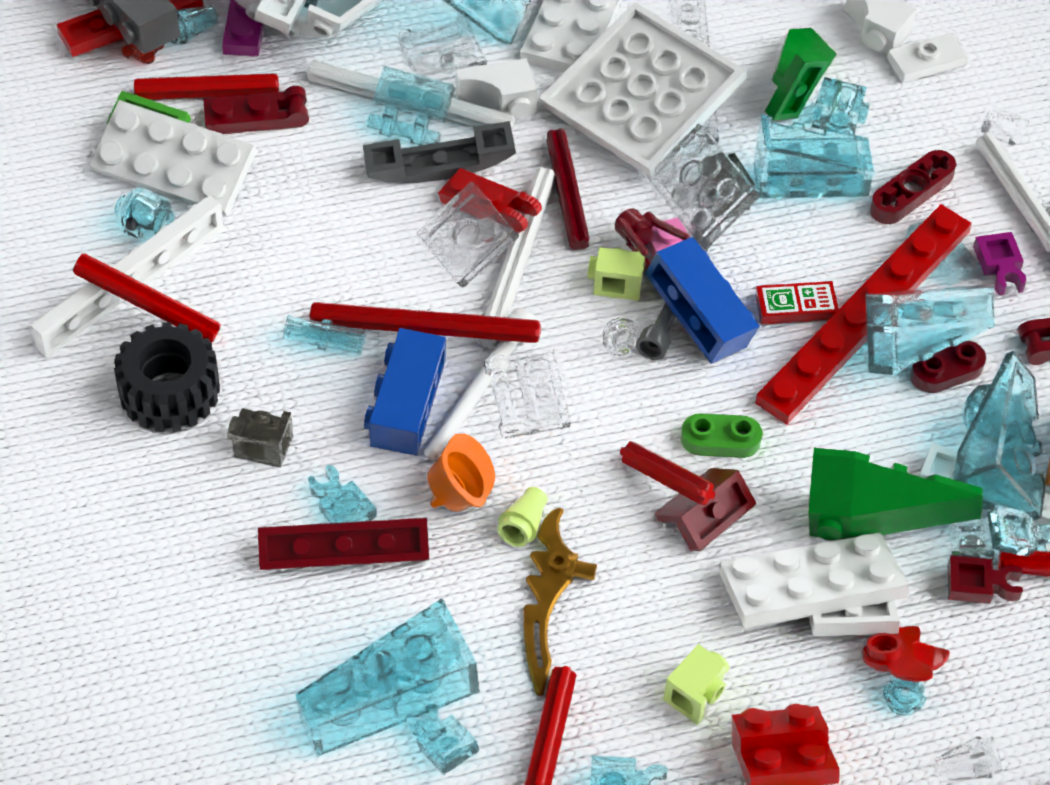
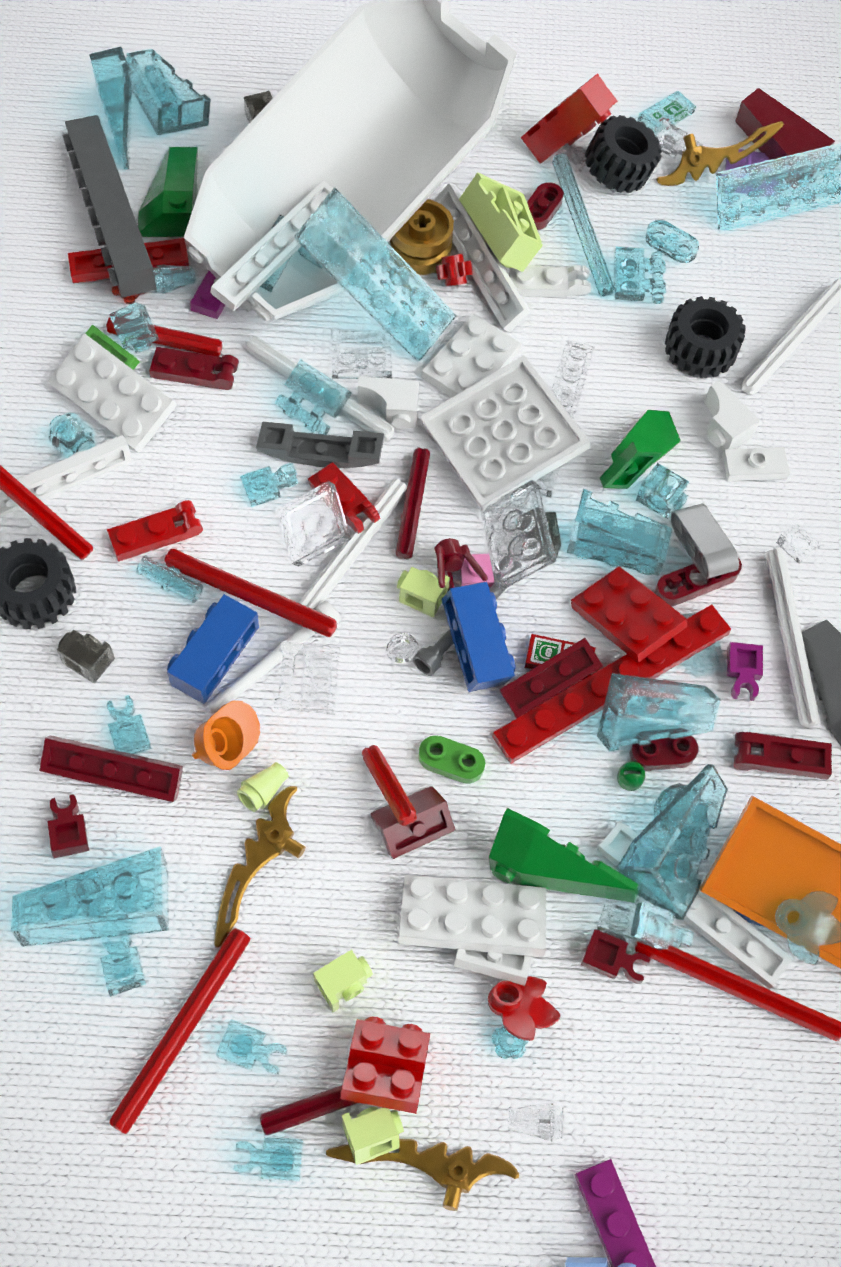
camera: 15 degrees right, 10 degrees up
(174, 80) = (134, 327): none -> clear light blue brick
(283, 291) = (155, 531): none -> red plate
(319, 622) = (67, 830): none -> dark red plate
(392, 213) = (264, 485): none -> clear light blue plate
(798, 321) = (550, 678): none -> dark red plate
(855, 236) = (629, 614): none -> red plate
(907, 143) = (704, 541): none -> light grey beam
(926, 403) = (631, 781): none -> green hinge

